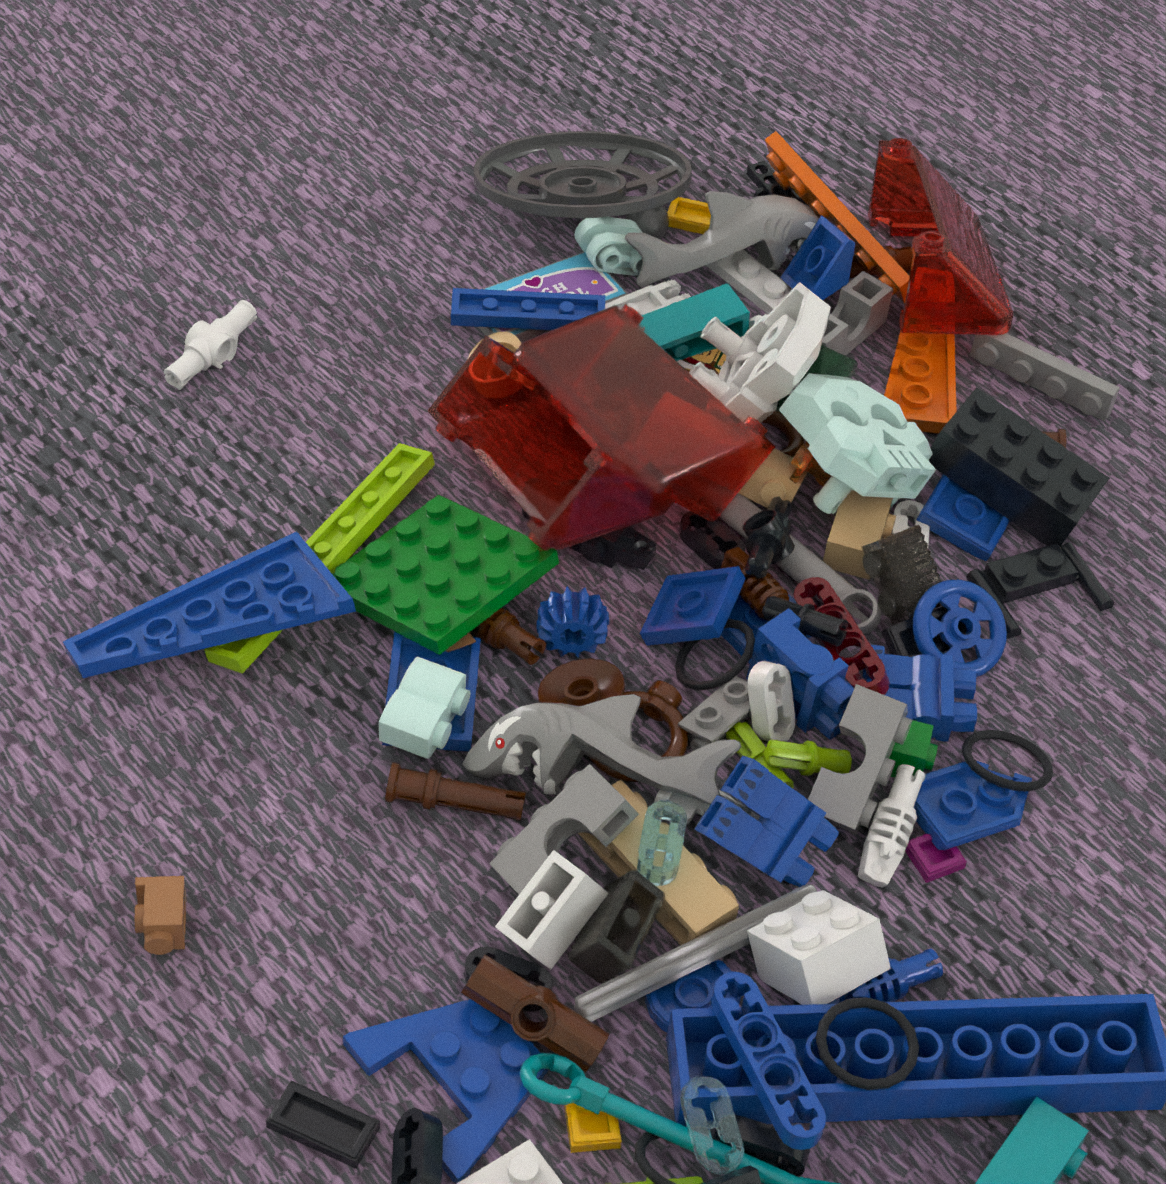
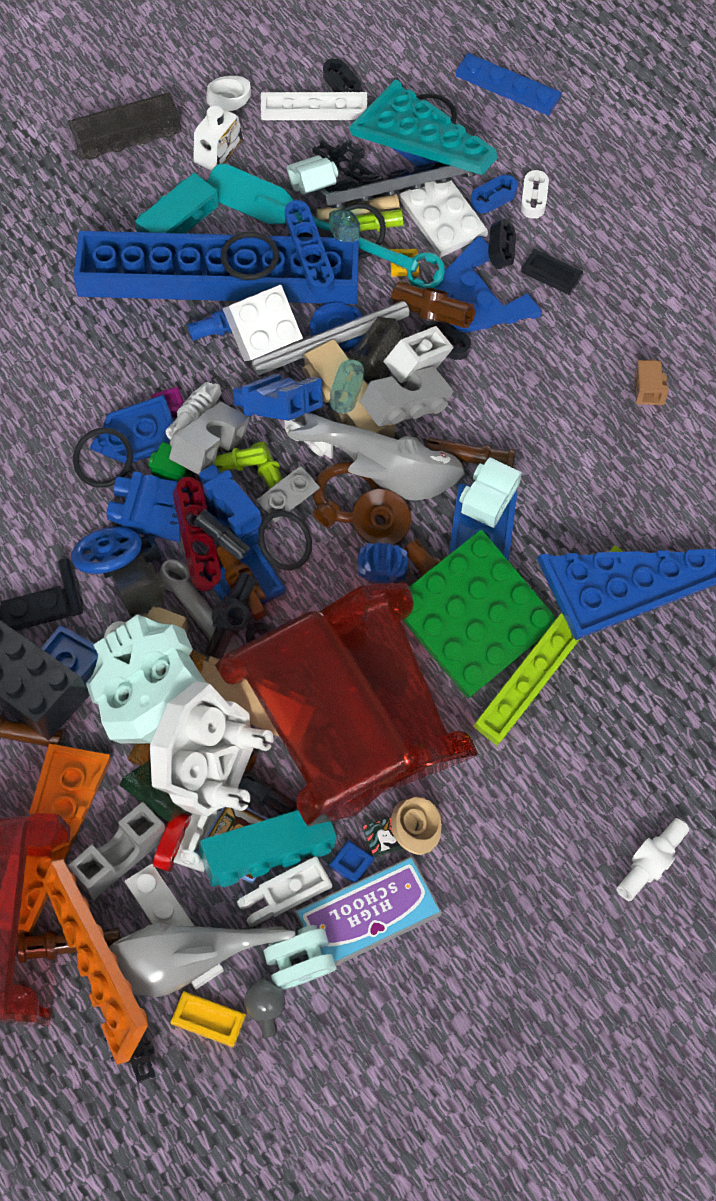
camera: 170 degrees left, 15 degrees up
(520, 308) = (386, 874): blue plate -> none
(582, 186) = (325, 1065): dark grey dish -> none
(693, 606) = (294, 574): blue plate -> none
(771, 701) = (257, 488): white beam -> none
(822, 260) = (125, 900): blue slope -> none

